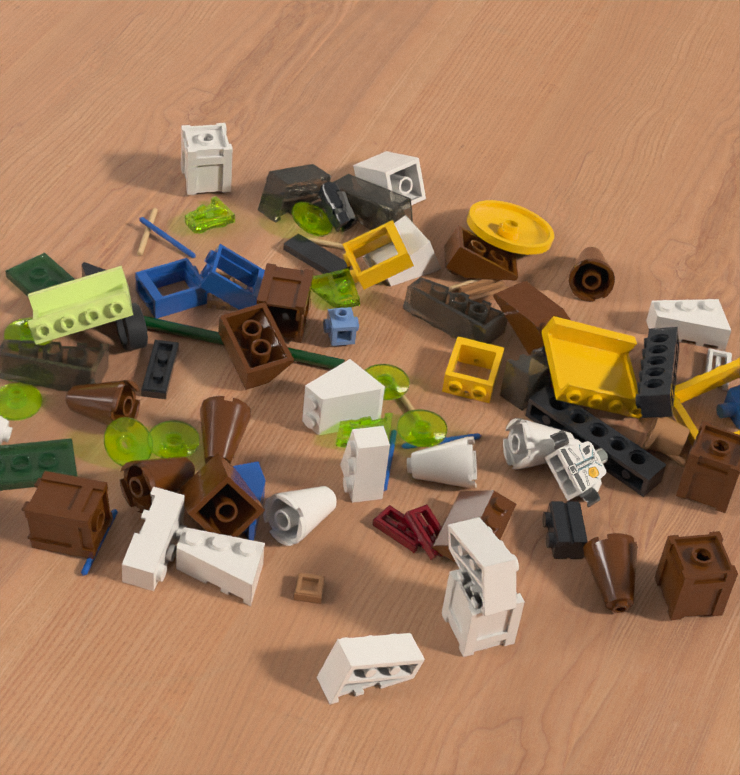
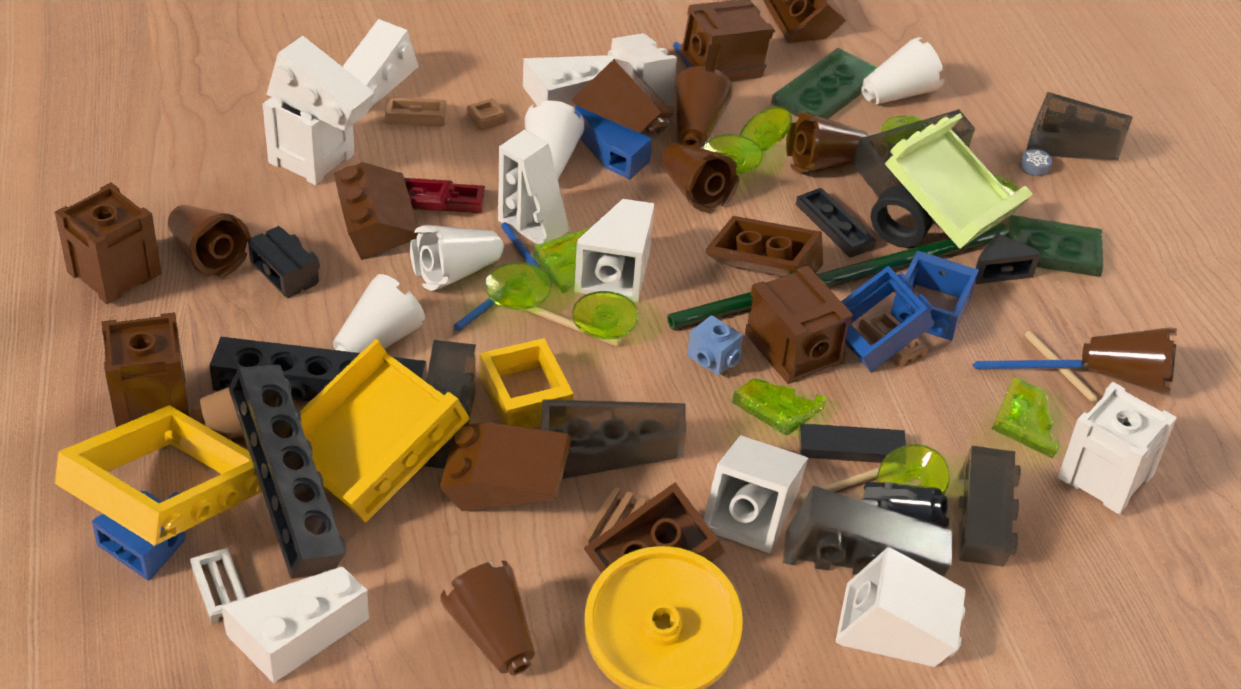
camera: 145 degrees right, 0 degrees up
(113, 194) = (1134, 357): none -> reddish brown cone
(360, 624) = (415, 111): none -> medium nougat tile
(369, 242) = (759, 428): yellow window -> none
(577, 467) = (315, 312): torso -> none

